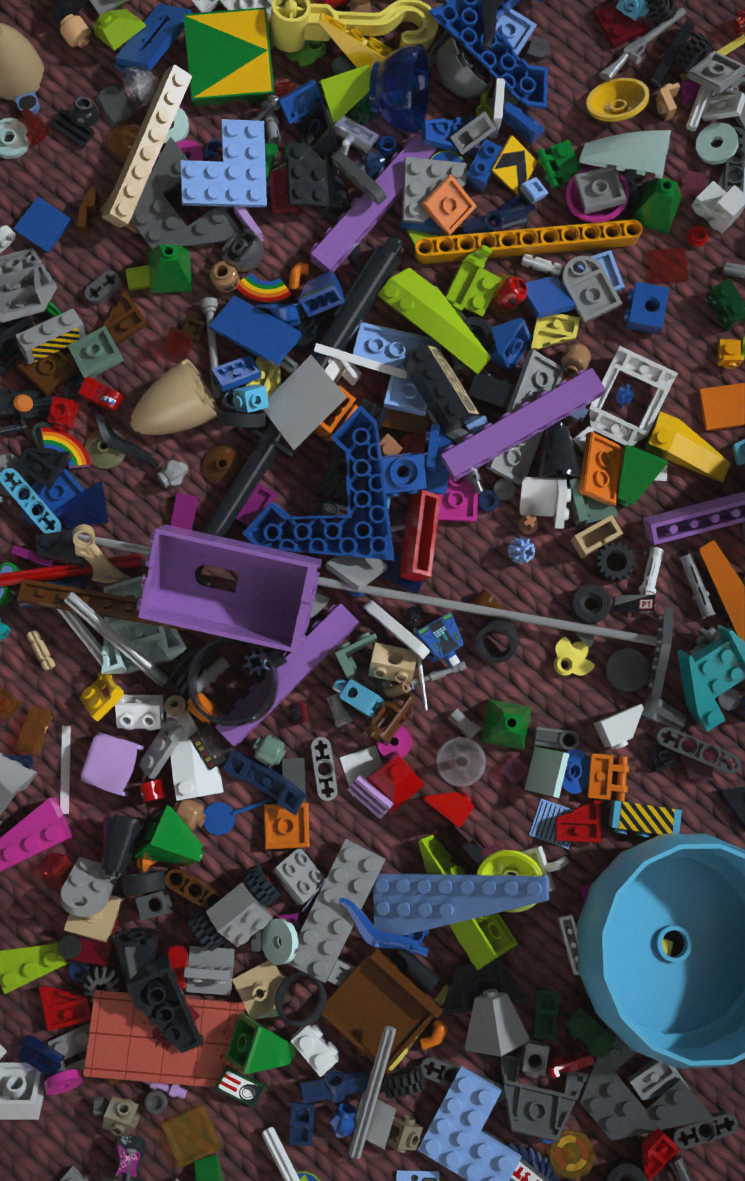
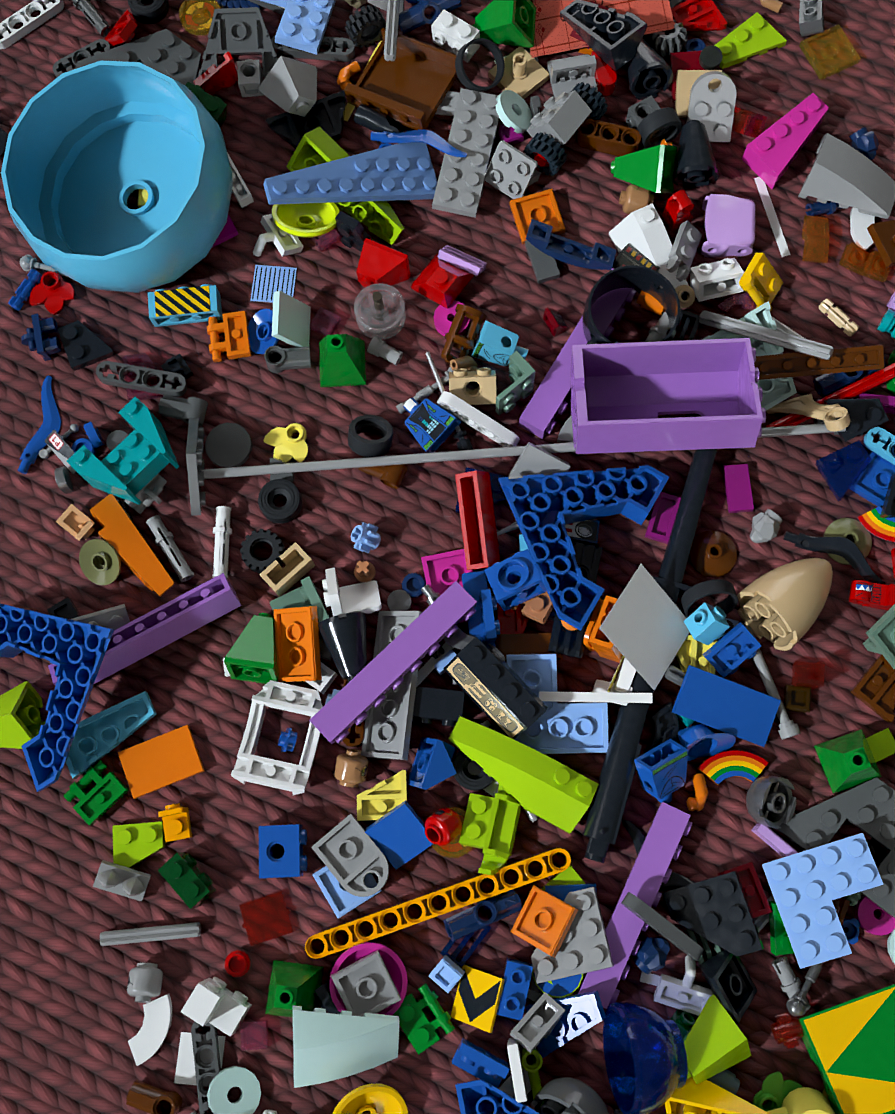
camera: 170 degrees right, 5 degrees down
(221, 817) = (603, 209): blue piece -> none
(224, 277) = (782, 764): medium nougat head -> none
(269, 750) = (575, 277): sand green head -> none
(299, 102) = (763, 1016): blue bracket -> none
(320, 786) = (514, 286): light grey beam -> none
(340, 714) = (511, 324): light grey pin -> none
(360, 763) = (479, 290): white sticker -> none
(387, 141) = (639, 997): blue plate -> none
(541, 264) = (415, 879): white axle -> none
(545, 1015) = (247, 115): dark green slope -> none
(580, 825) = (248, 285): red wing -> none
(619, 728) = (226, 381): white slope -> none
(634, 603) = (233, 512): sticker -> none
(681, 445) = (212, 700): yellow wedge -> none

